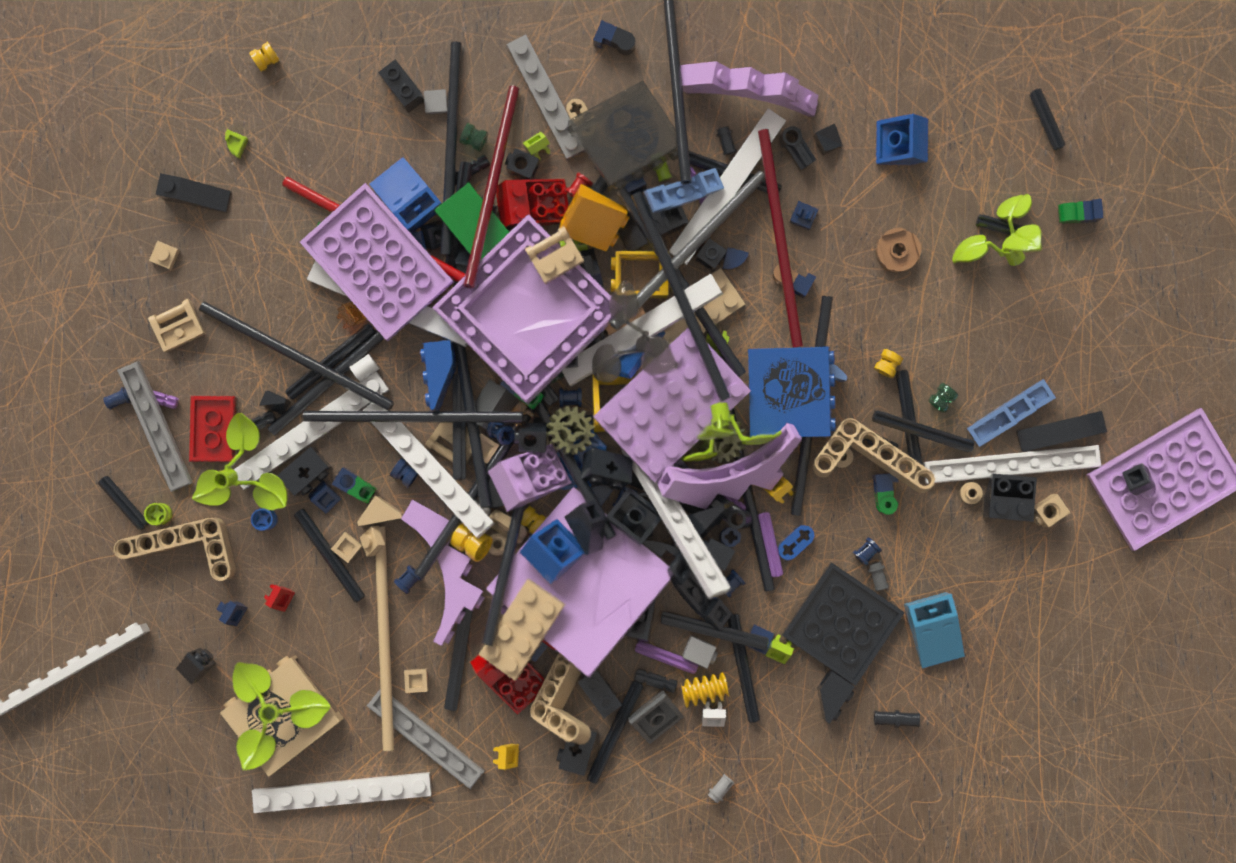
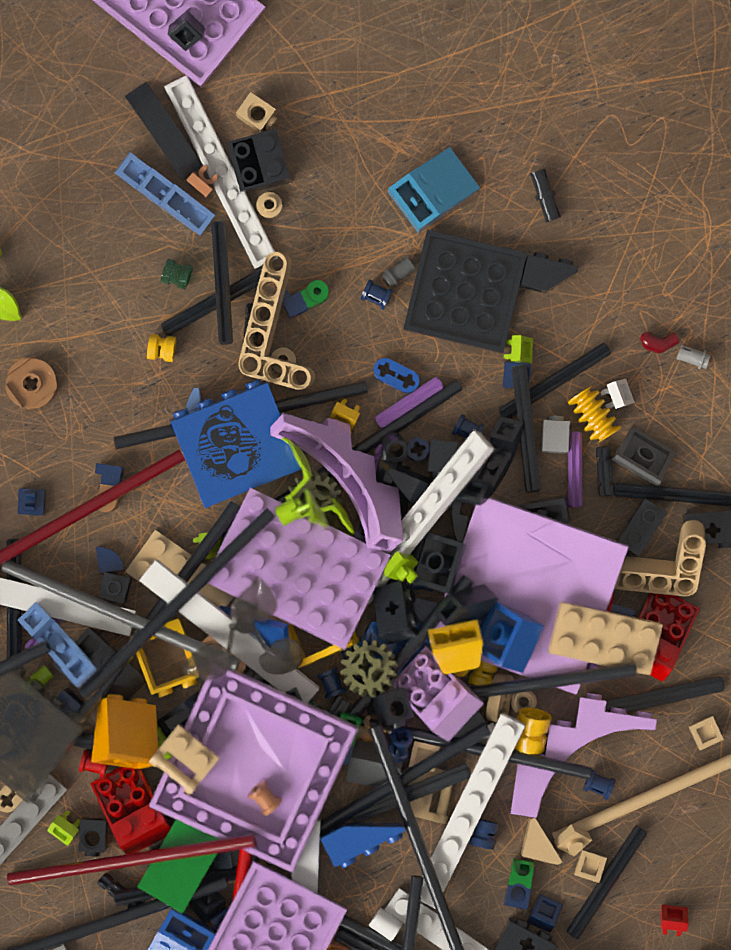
camera: 105 degrees left, 0 degrees up
(473, 137) = (82, 902): clear green wheel -> none
(499, 308) = (264, 797): none -> nougat bush
(560, 506) = (457, 647): none -> yellow torso
(641, 487) = (401, 567): none -> lime tile
(742, 763) = (656, 344): none -> dark red arm
(1009, 445) = (201, 183): none -> nougat tile

